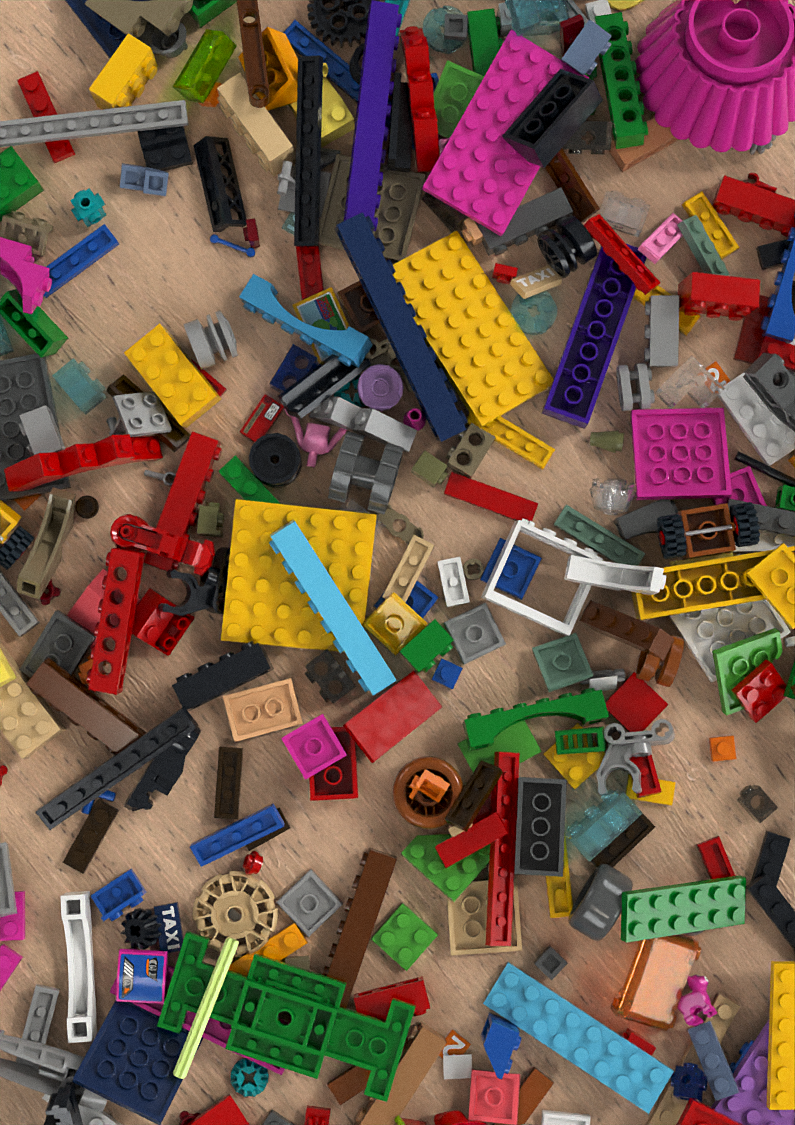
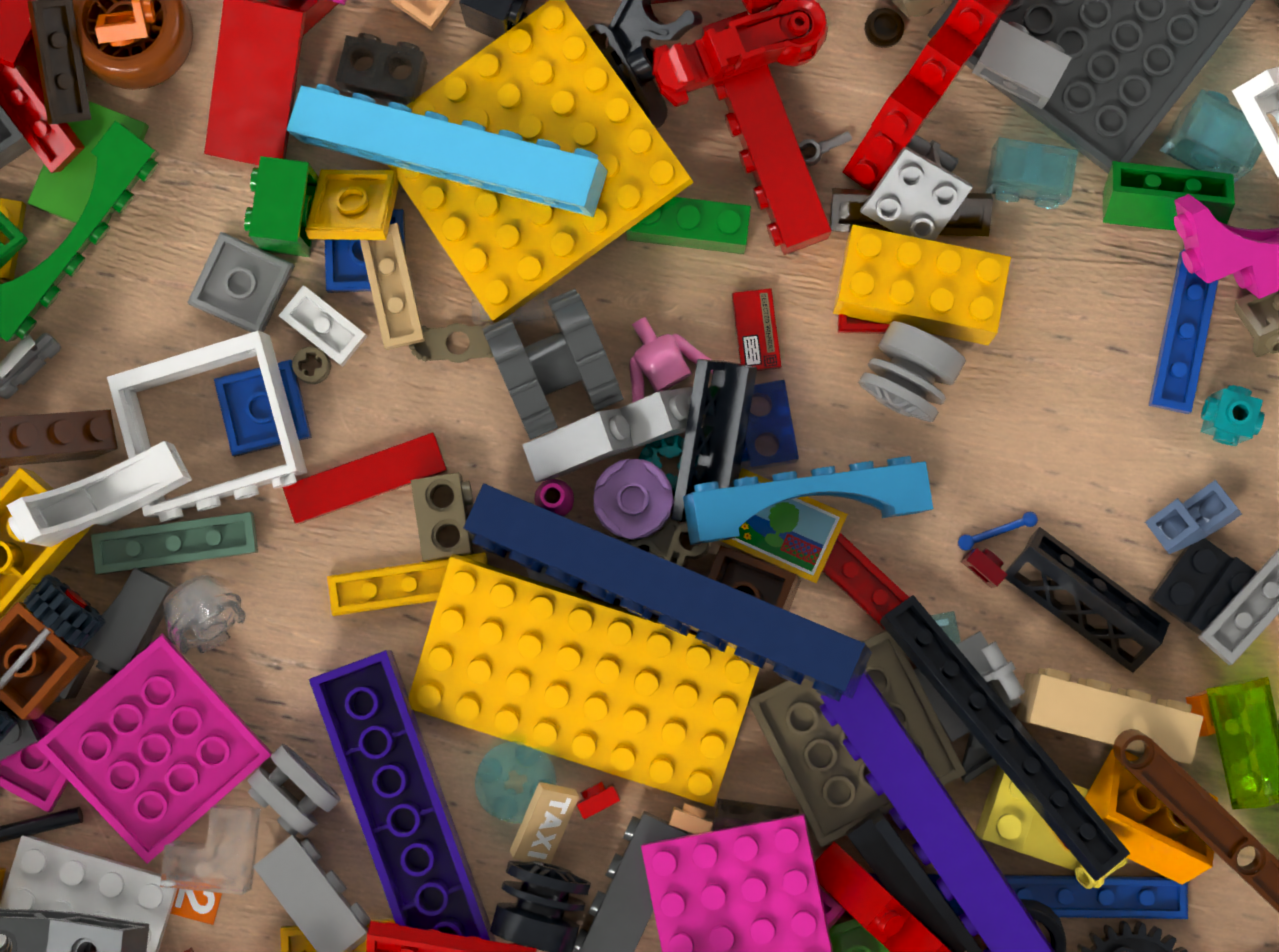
camera: 145 degrees right, 0 degrees up
(210, 520) = (708, 140): olive brick -> none
(261, 460) = (678, 264): black wheel -> none
(430, 469) = (475, 447): olive brick -> none
(447, 673) = (231, 201): blue plate -> none
(562, 662) = (90, 337): sand green plate -> none
(608, 440) = (270, 687): olive cone -> none

